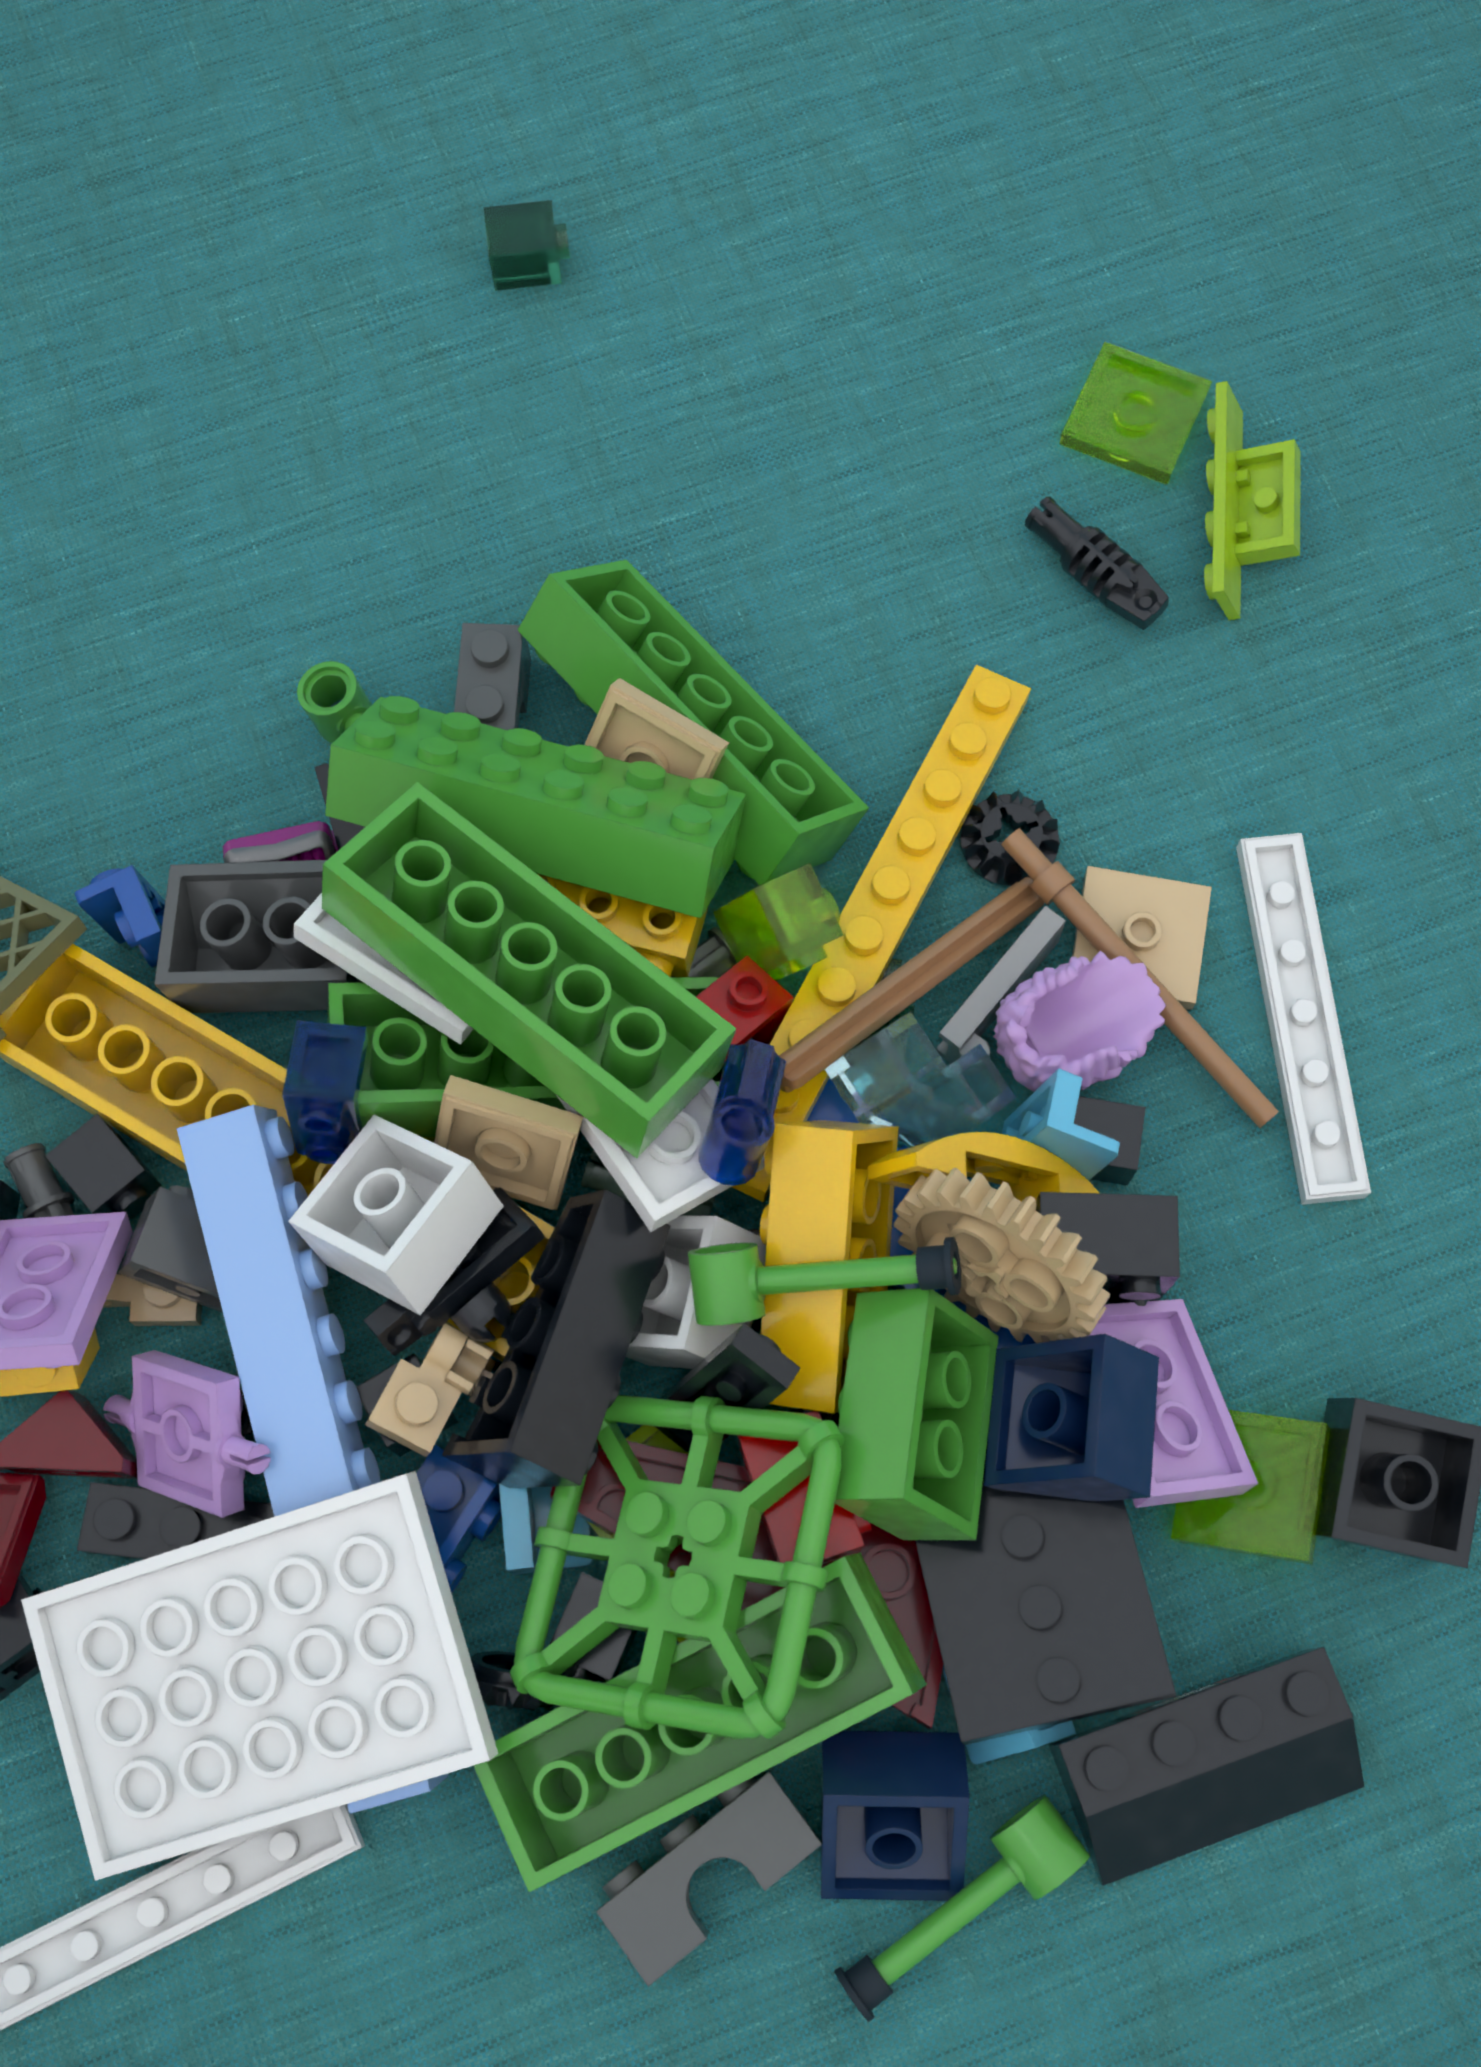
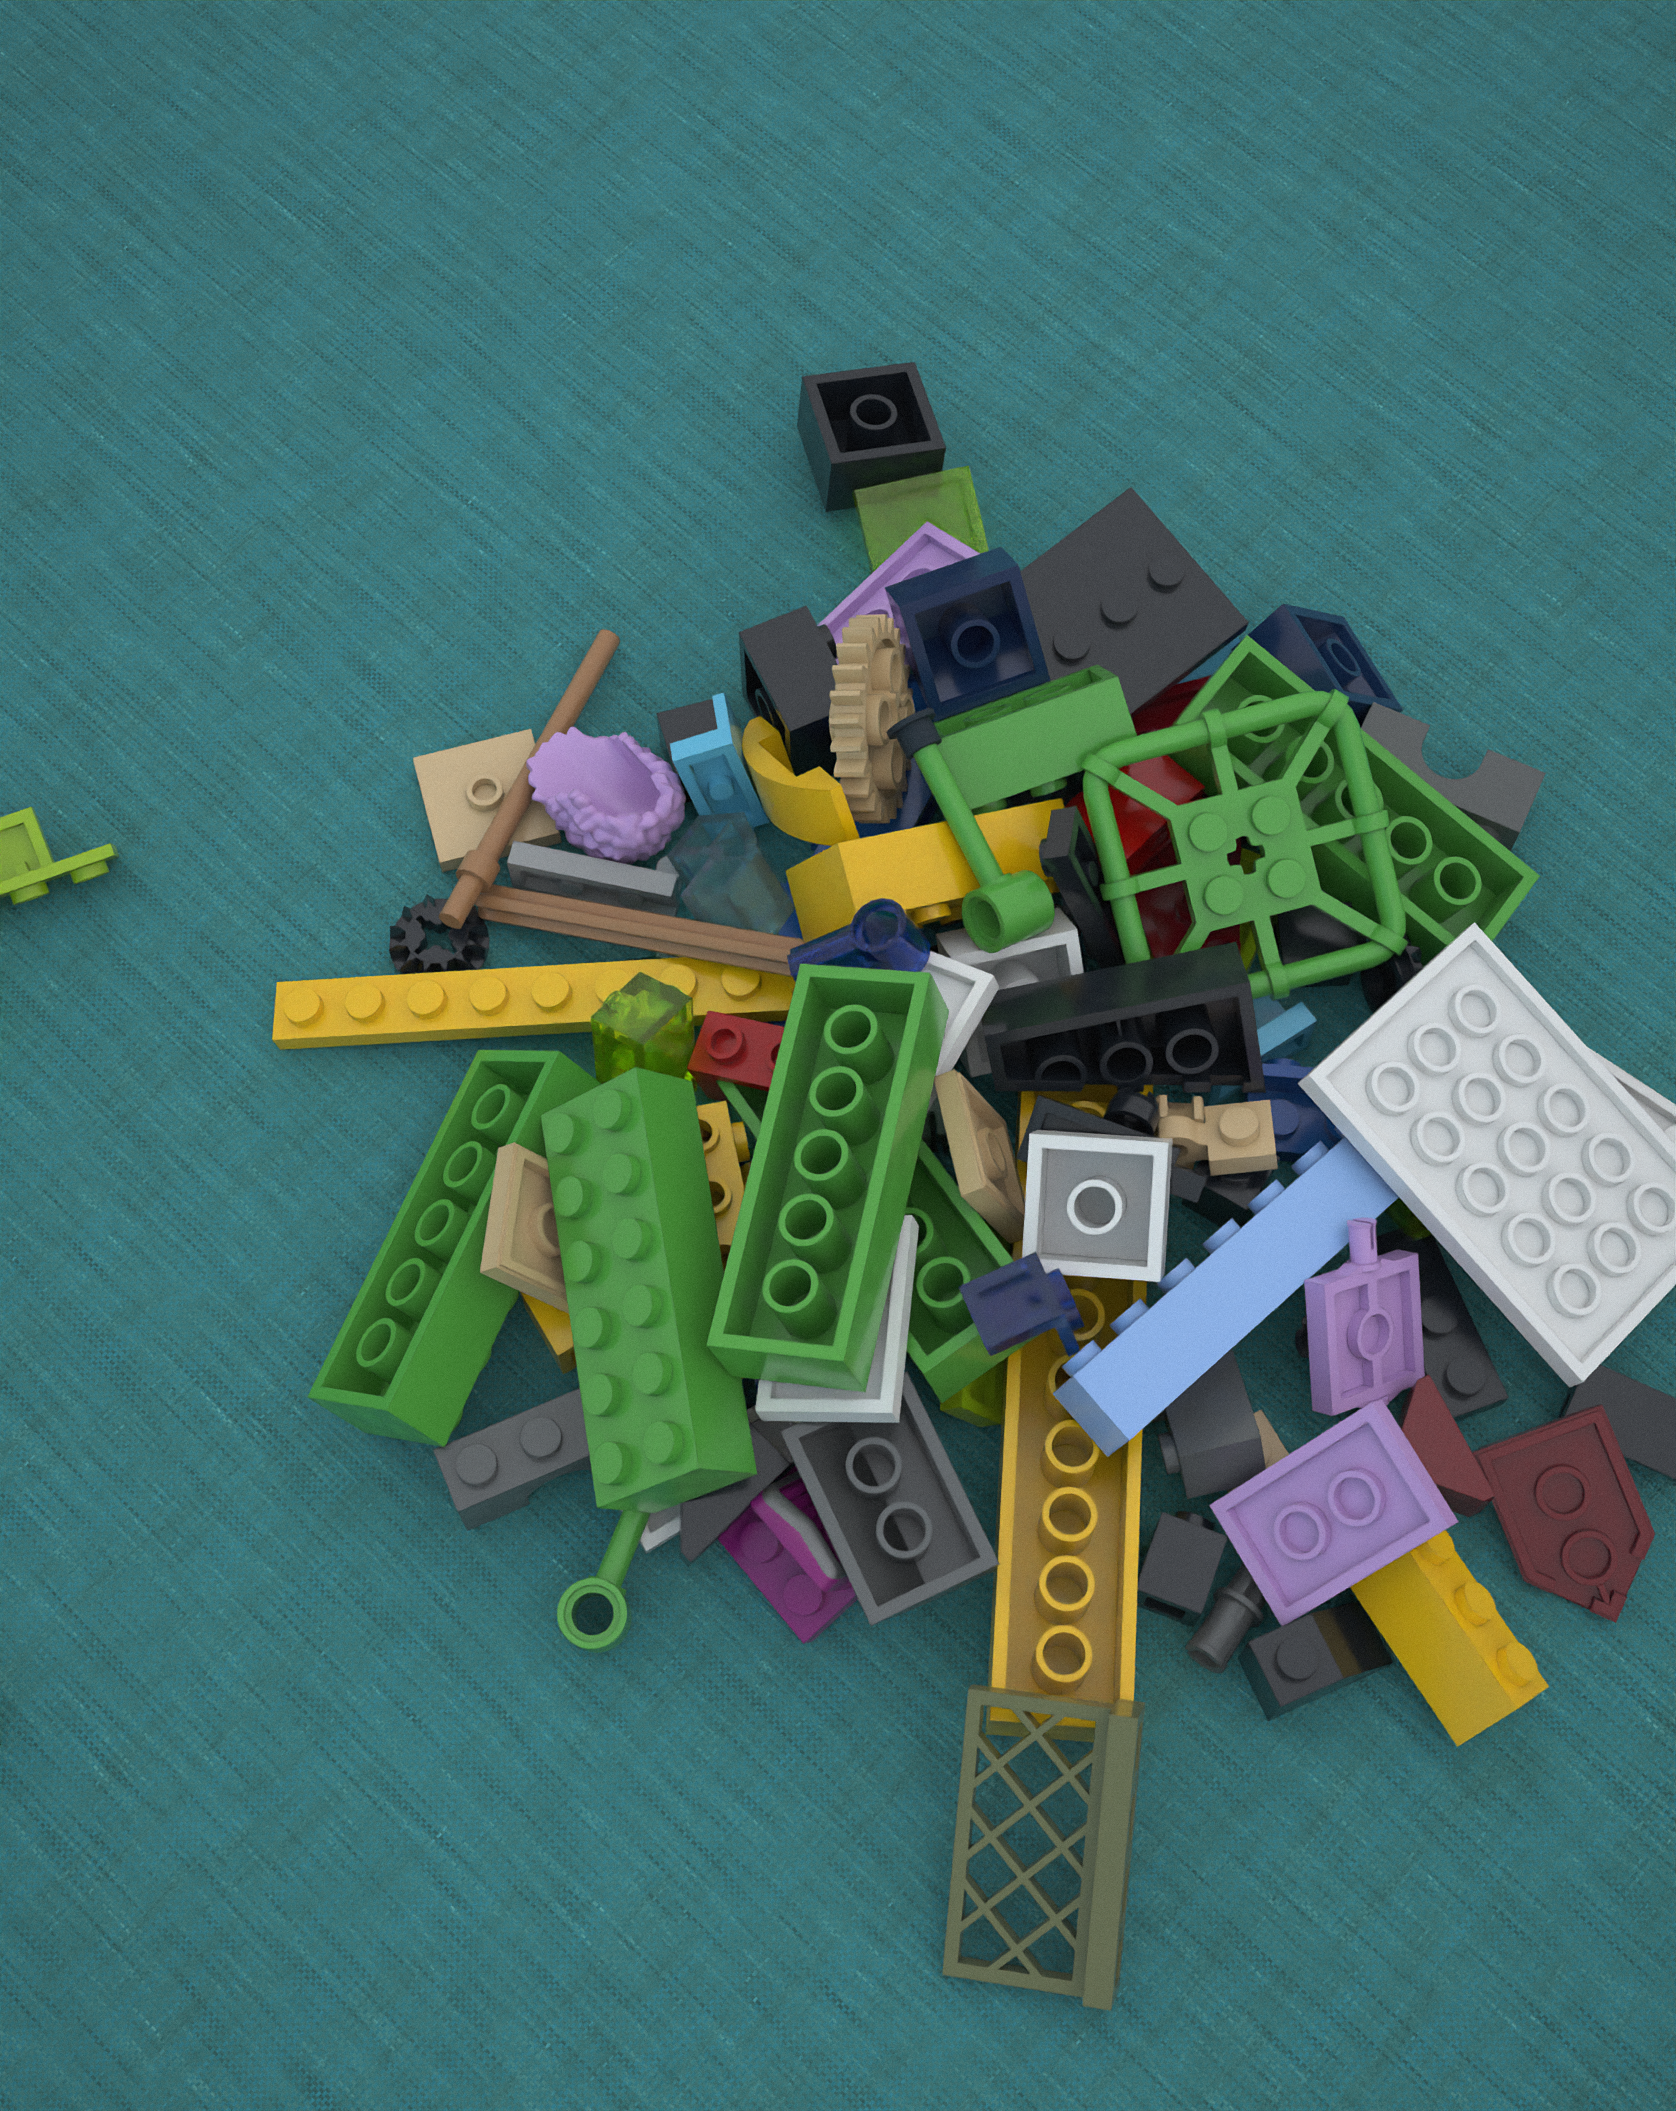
camera: 120 degrees left, 5 degrees down
(126, 909) = (923, 1657): blue bracket -> none
(1034, 1850) = (1282, 575): bright green piece -> none
(1099, 565) = (113, 977): black hinge -> none
(1210, 1764) = (1095, 452): black slope -> none
(1302, 1020) = (495, 654): white tile -> none

